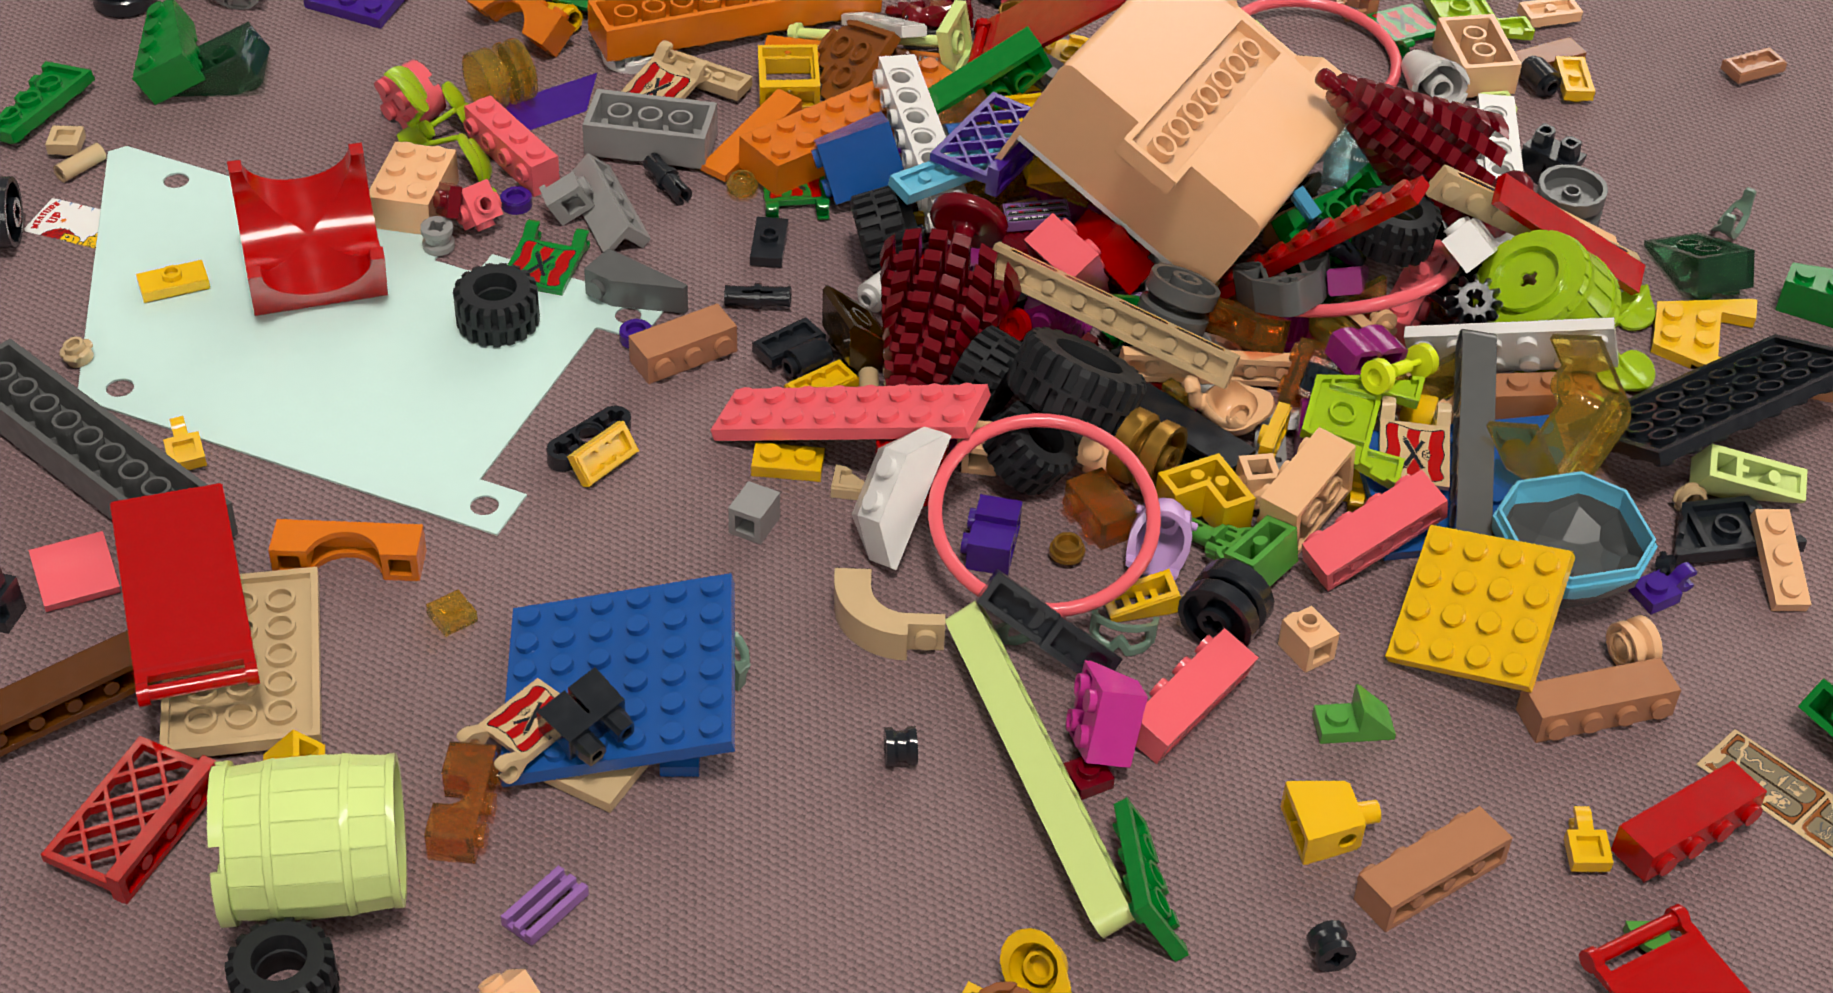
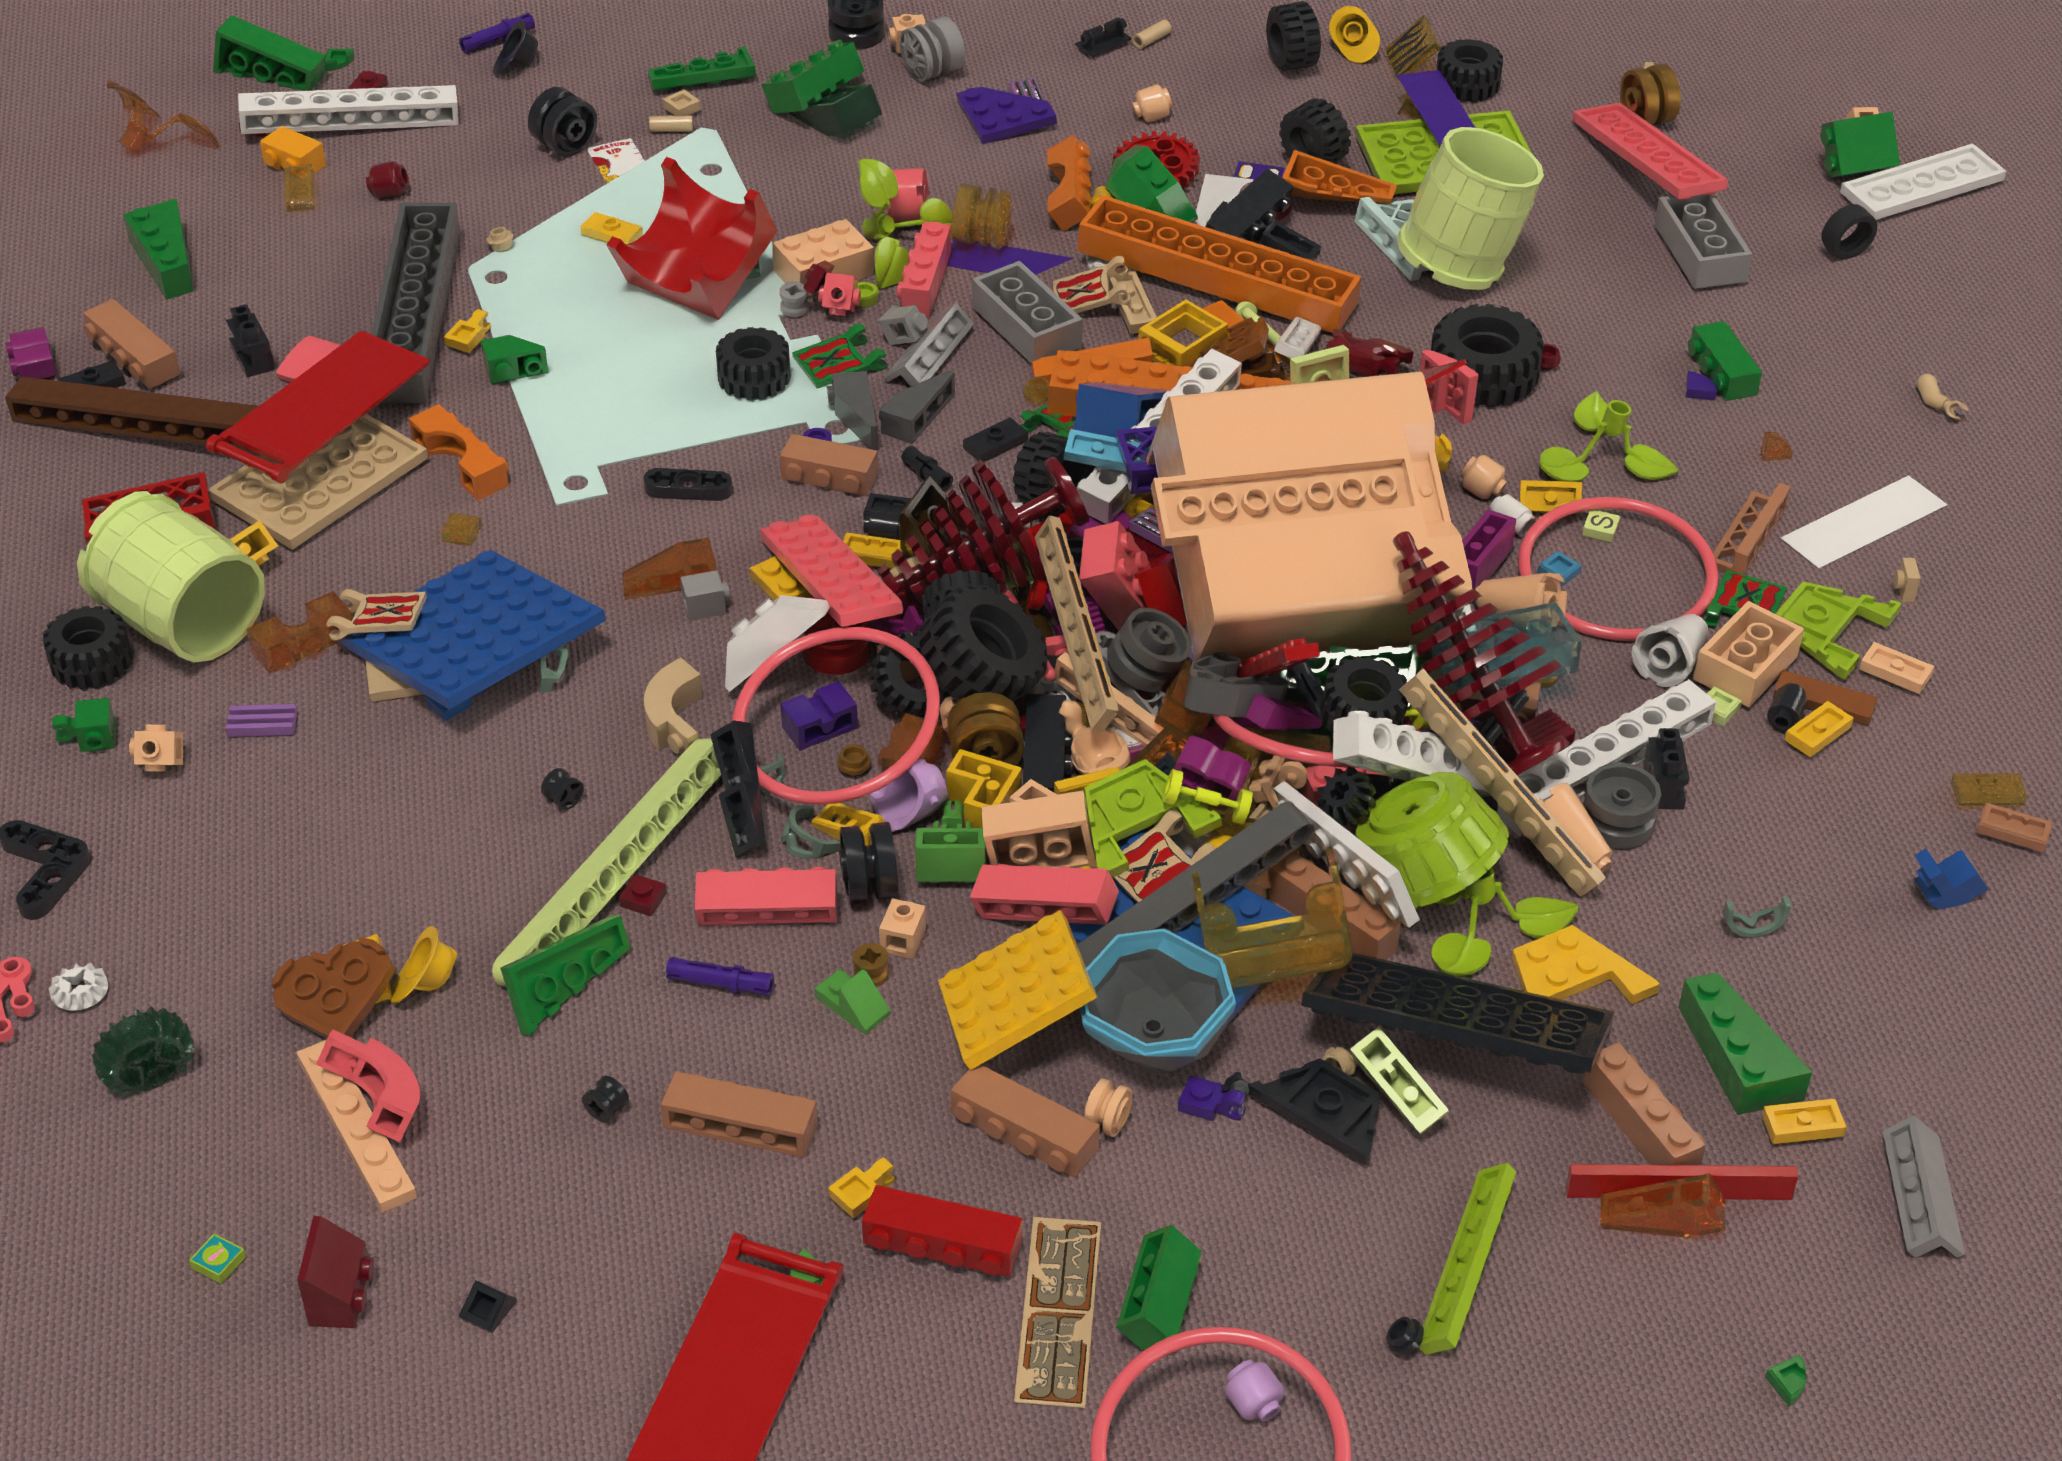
camera: 50 degrees right, 0 degrees up
(267, 440) = (512, 358): none -> green slope
(516, 200) = (880, 306): dark purple tile -> none
(584, 716) = (394, 624): black hips -> none
(603, 453) = (675, 497): yellow plate -> none
(667, 178) = (994, 355): black pin -> none
(679, 254) = (916, 407): none -> dark grey slope
(702, 503) = (663, 570): none -> clear orange slope
(1106, 715) = (675, 859): dark pink slope -> none
(1259, 776) = (731, 978): none -> dark purple pin
(1305, 205) = (1310, 630): dark azure tile -> none
(1326, 818) = (726, 1033): yellow torso -> none
(1329, 683) = (873, 960): none -> pearl gold wheel
(1540, 214) = (1515, 808): red tile -> none
(1704, 264) = (1660, 927): clear green slope -> none
(1707, 52) = (1989, 788): none -> clear yellow plate
(1780, 560) = (1321, 1149): light nougat plate -> none
(1783, 117) = (1950, 881): none -> blue brick

